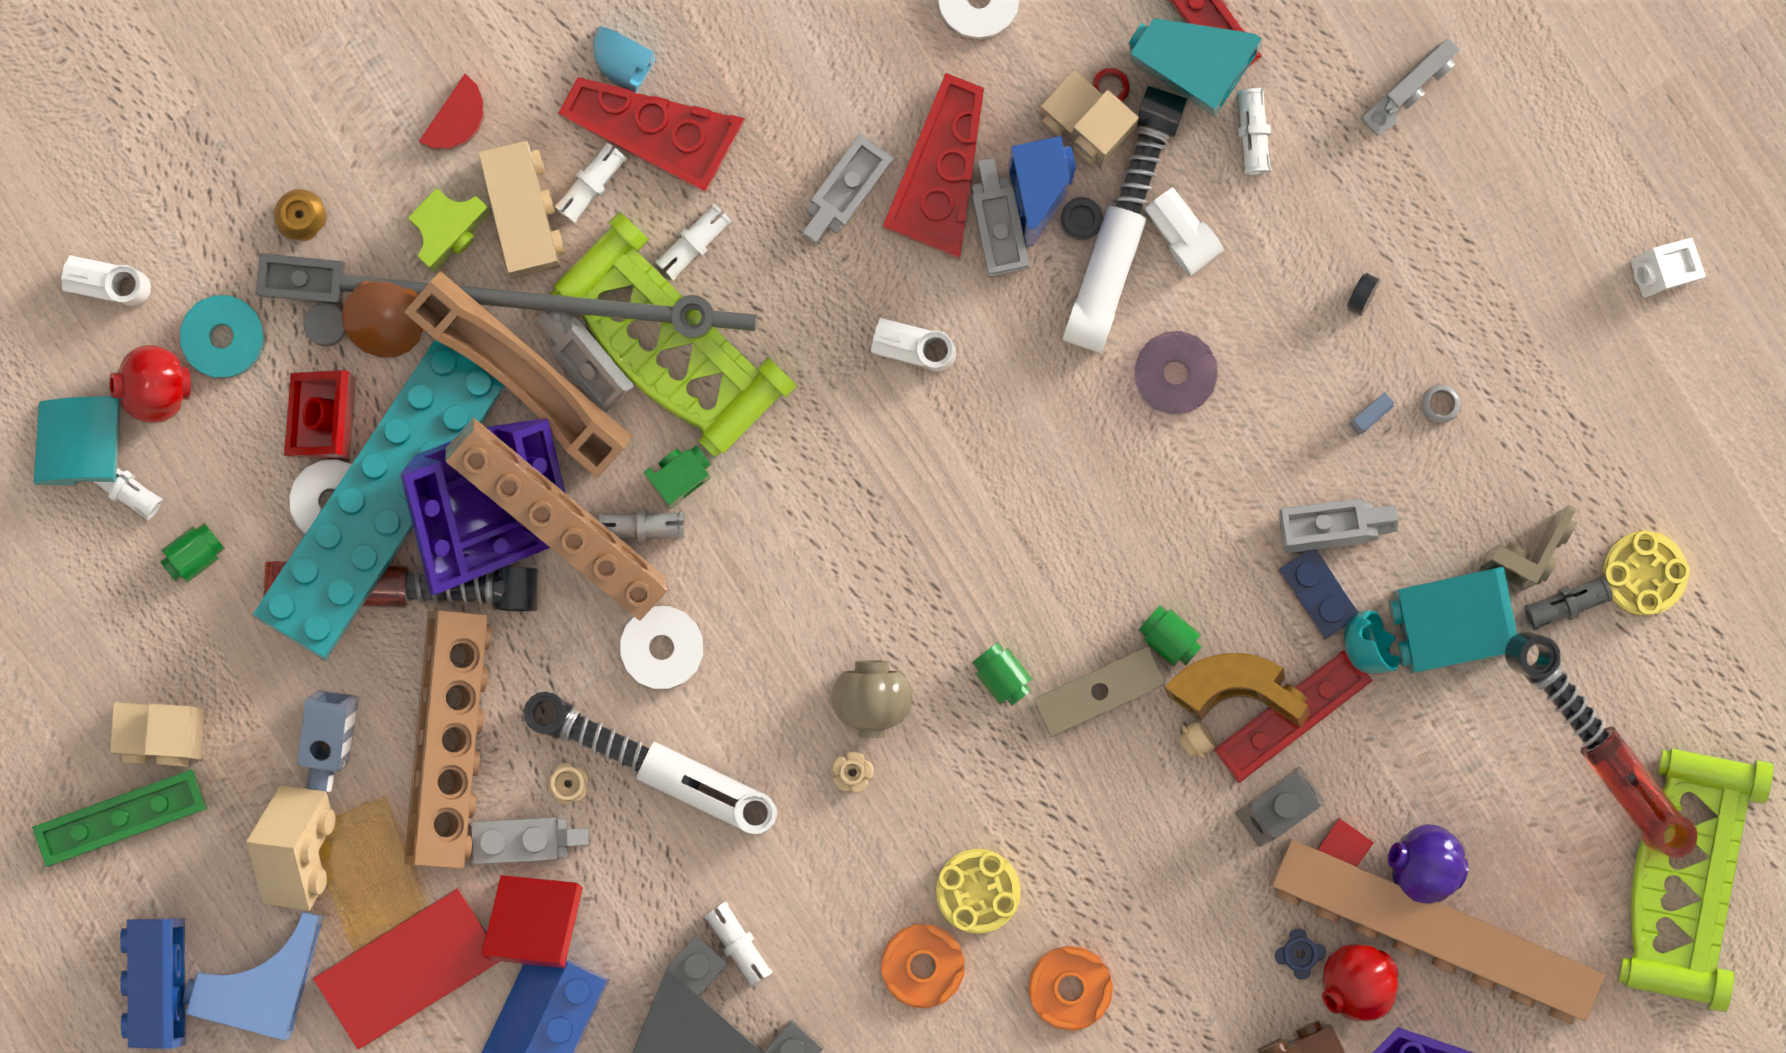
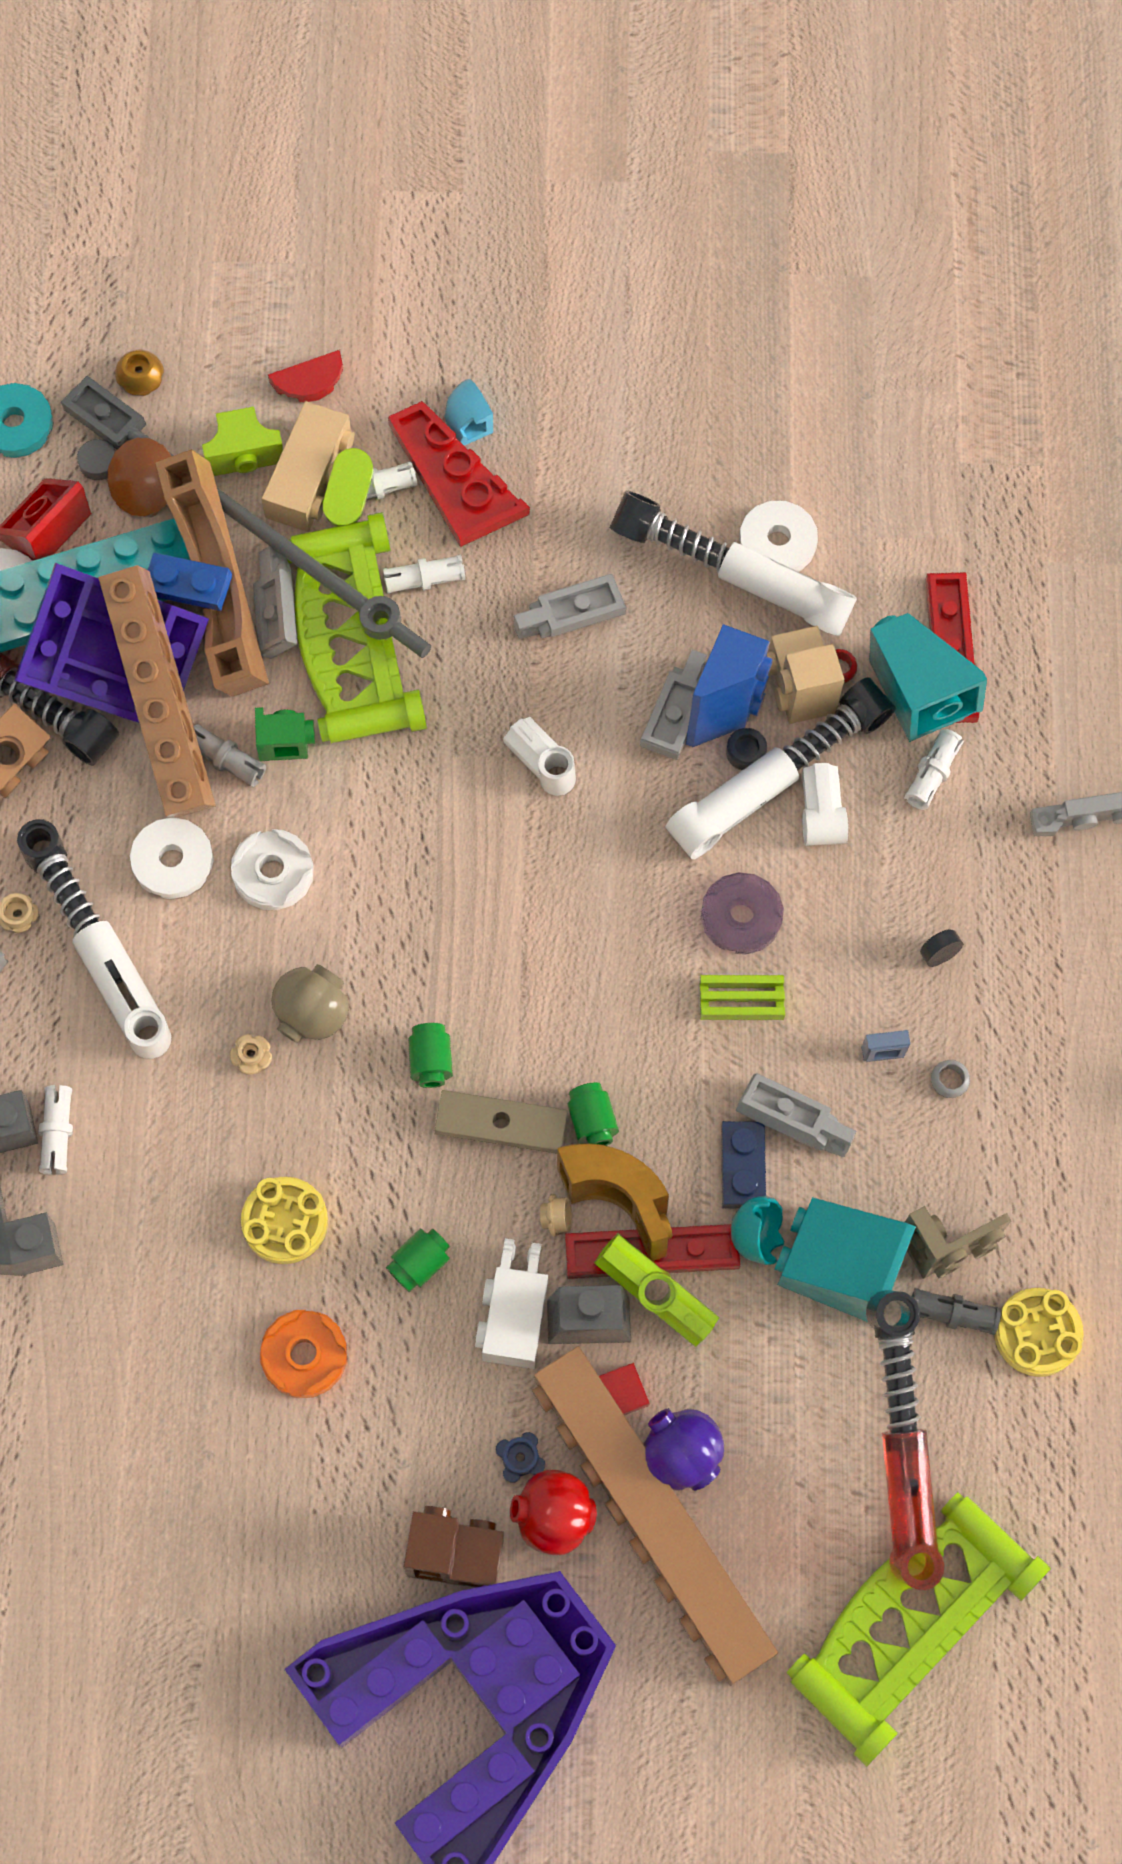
camera: 30 degrees right, 15 degrees down
(504, 396) = (189, 581): none -> blue plate
(575, 209) = (348, 487): none -> lime tile
(744, 576) = (277, 891): none -> white tile
(922, 991) = (211, 1269): orange tile -> none
(937, 180) = (645, 650): red wing -> none
(1063, 43) = (815, 601): none -> piece
(1111, 851) = (418, 1259): none -> green brick
(1217, 840) = (514, 1311): none -> white hinge
(1253, 428) = (742, 981): none -> lime tile
(1345, 752) = (677, 1308): none -> lime piece

